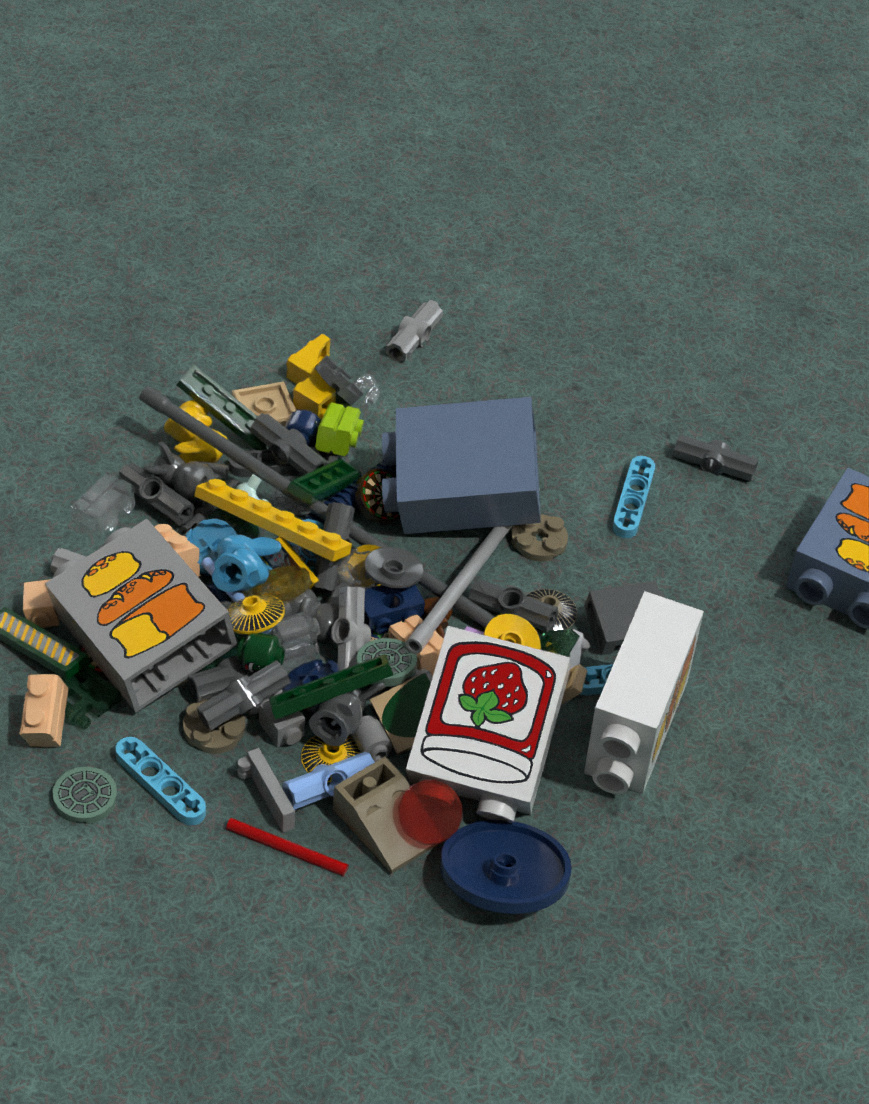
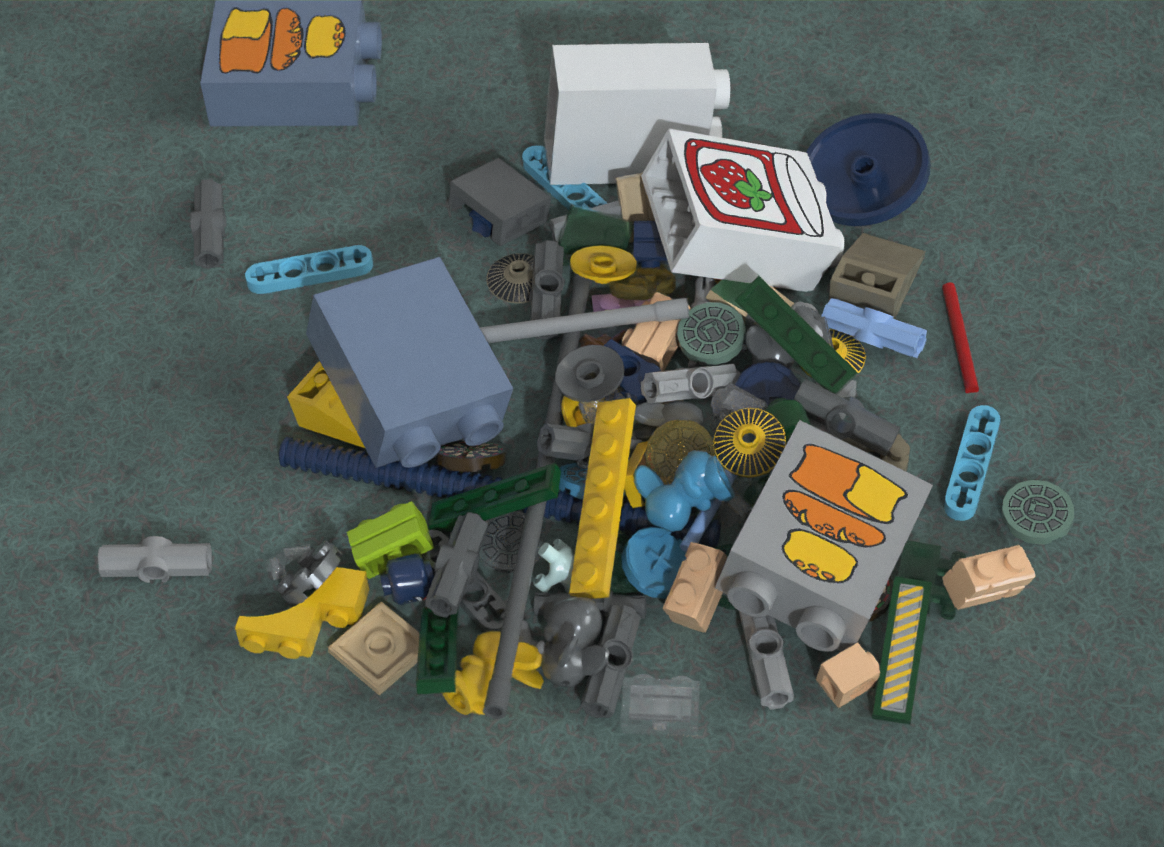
camera: 110 degrees left, 5 degrees up
(256, 766) = (916, 370): light grey hinge -> none
(430, 812) = (862, 229): clear red tile -> none

